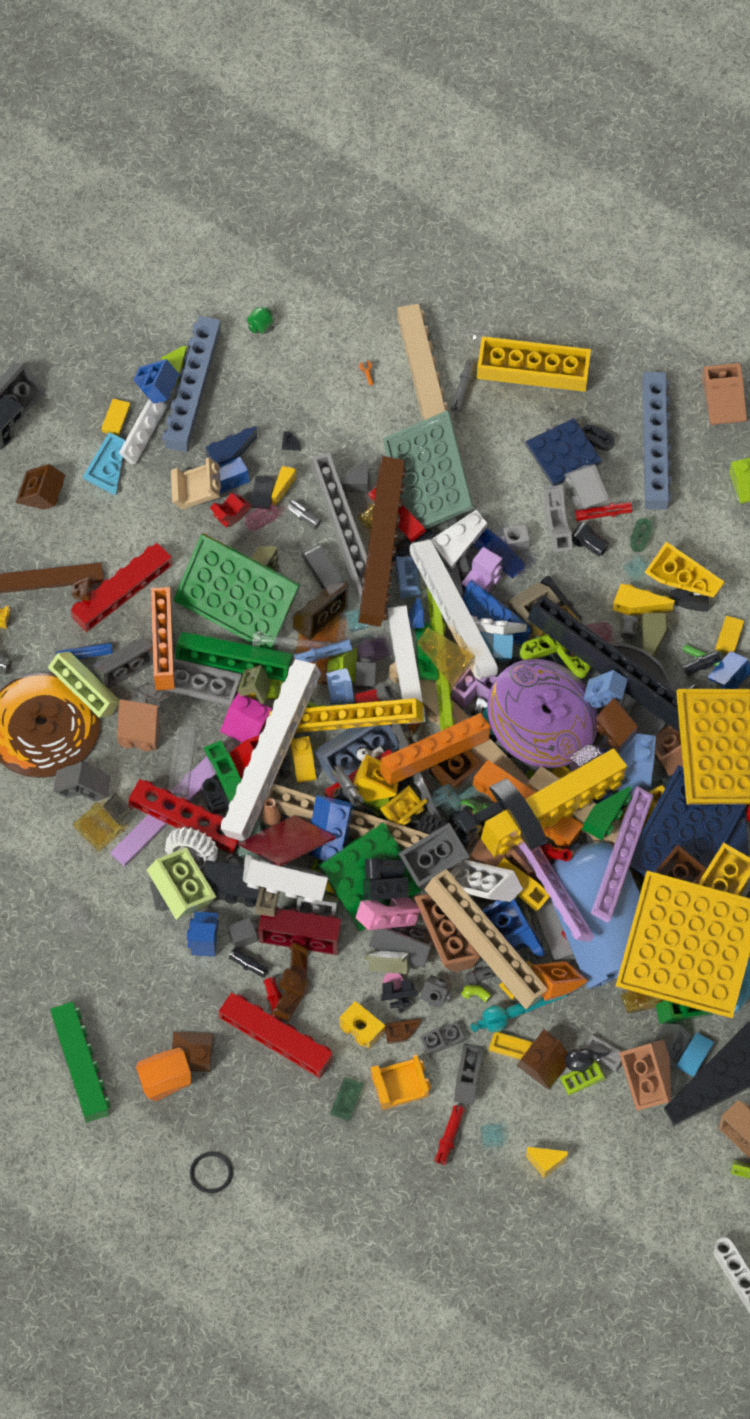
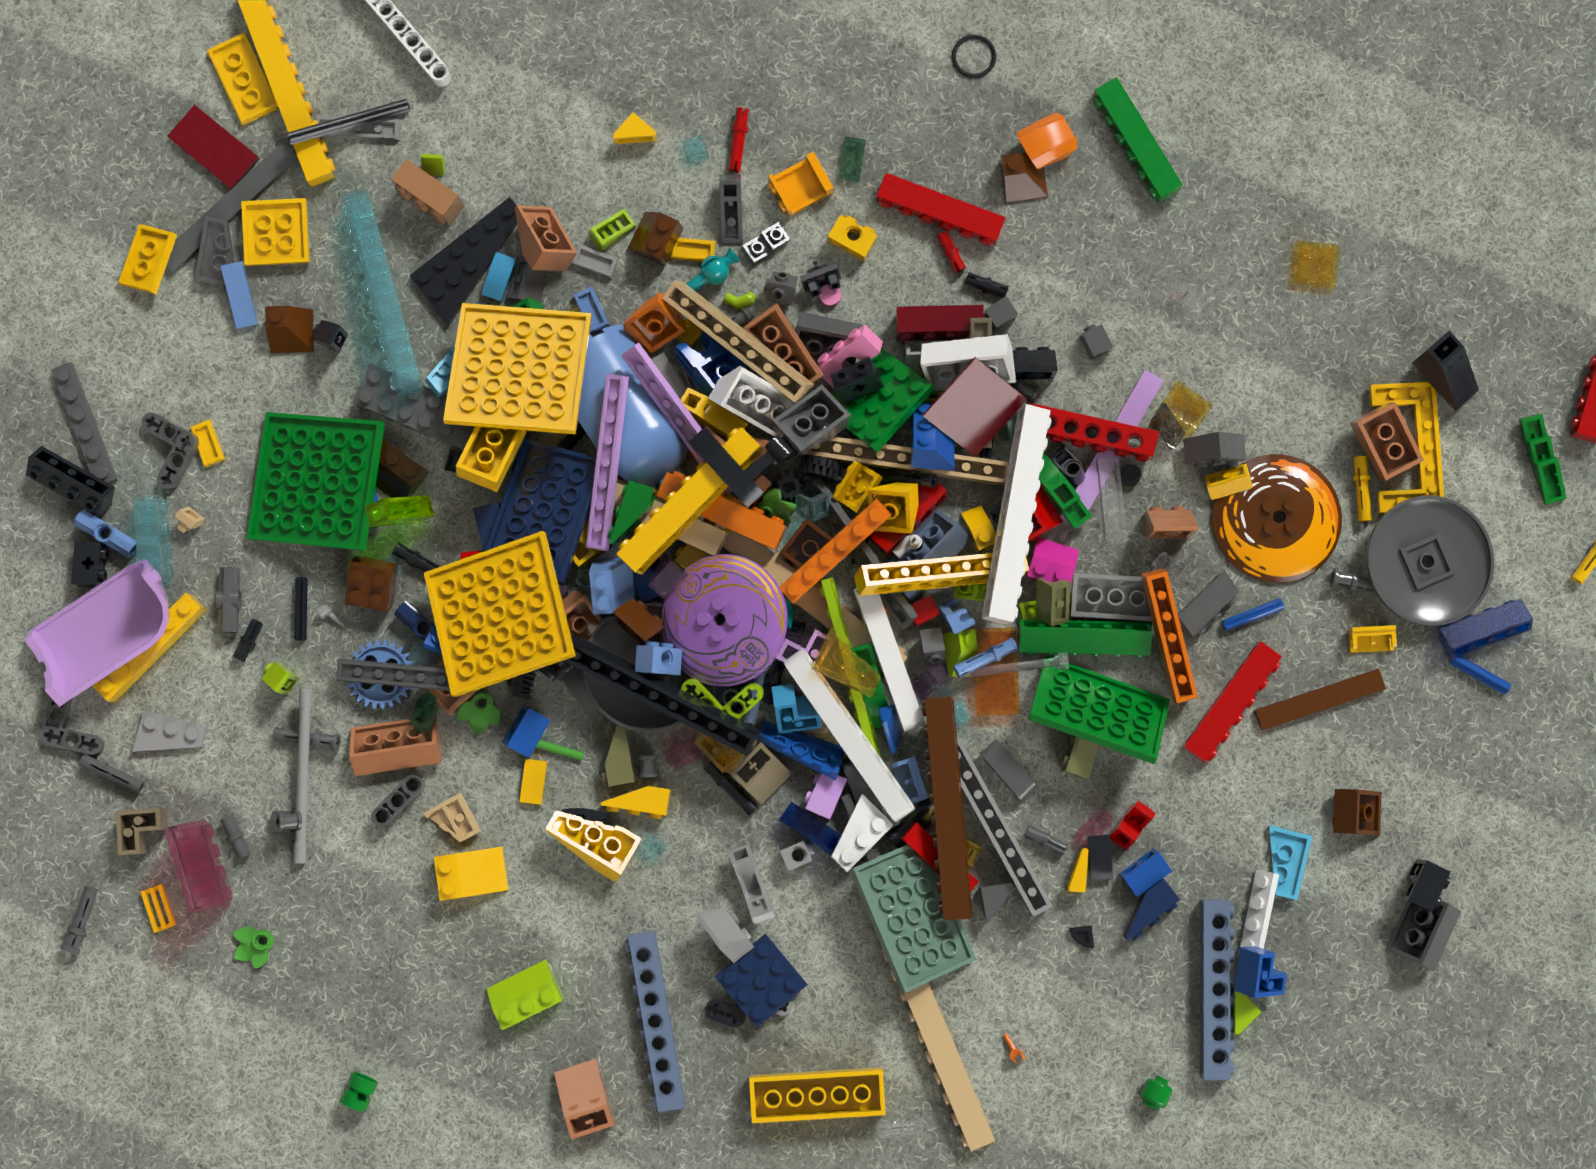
camera: 175 degrees right, 20 degrees up
(72, 755) = (1228, 481): none -> yellow slope
(82, 589) = (1275, 687): reddish brown tile -> none
(84, 684) = (1243, 568): yellowish green brick -> none
(115, 417) = (1294, 927): yellow tile -> none
(160, 780) = (1130, 475): none -> black tile
(181, 883) = (1078, 343): yellowish green brick -> none
(195, 485) = (1180, 848): tan panel -> none
(197, 843) = (1077, 391): white gear -> none
(203, 934) = (1040, 299): blue brick -> none
(270, 812) = (996, 448): nougat cone -> none
(294, 983) = (933, 266): reddish brown plate -> none
(322, 610) = (999, 708): dark brown slope -> none
(350, 790) = (919, 481): dark grey pin -> none
(383, 868) = (869, 397): black piece -> none
(388, 961) = (839, 309): panel -> none
(401, 1031) = (811, 243): reddish brown tile -> none
(466, 379) = (895, 1052): dark grey pin -> none
(498, 627) = (798, 726): white wing -> none
(556, 853) = (689, 465): red pin -> none
(581, 1059) = (618, 242): black piece -> none
(585, 536) = (716, 874): black piece -> none
(614, 1010) = (589, 303): none -> medium blue tile
(624, 508) = (689, 917): red pin -> none
(637, 534) = (648, 891): clear green beam -> none
(681, 866) = (543, 454): reddish brown brick -> none
(702, 663) = (558, 736): black pin -> none

